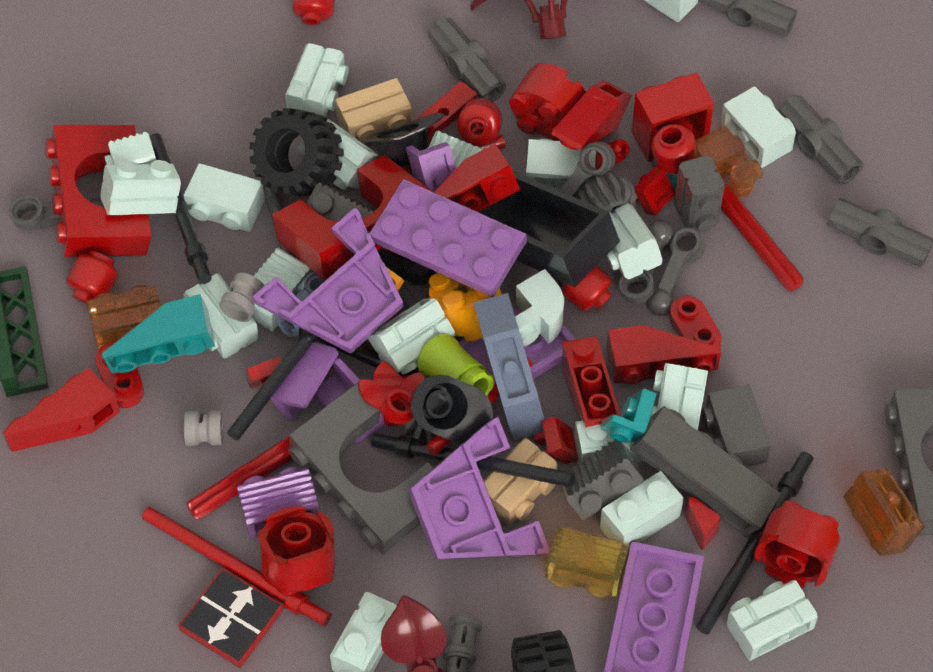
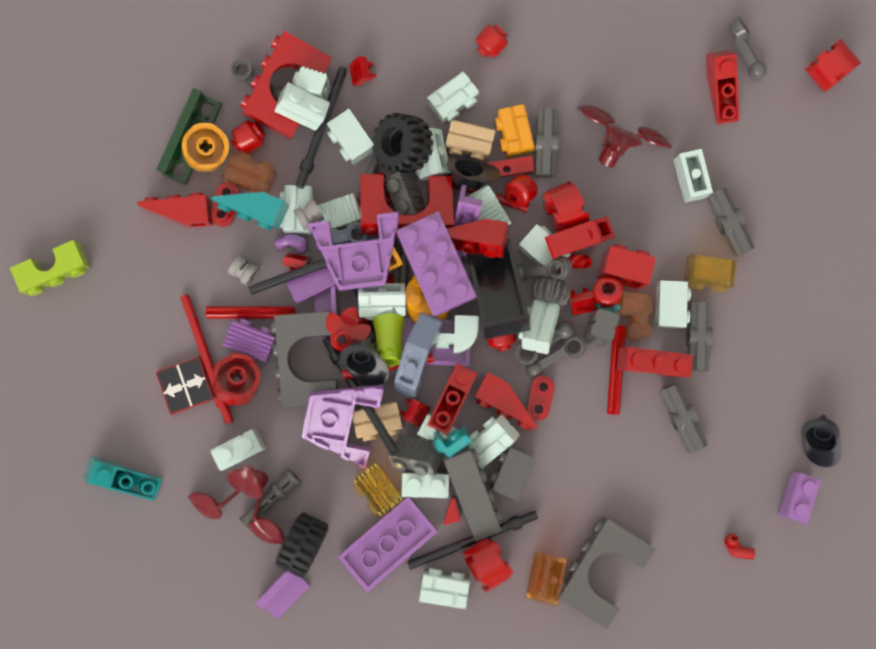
camera: 30 degrees right, 25 degrees up
(47, 316) = (194, 140): none -> light orange brick
(179, 124) = (360, 72): none -> red tile
(237, 357) = (292, 240): none -> medium lavender arm
(419, 69) = (515, 131): none -> light orange brick
(772, 66) = (710, 272): none -> clear yellow brick
(813, 182) = (654, 362): none -> red arch

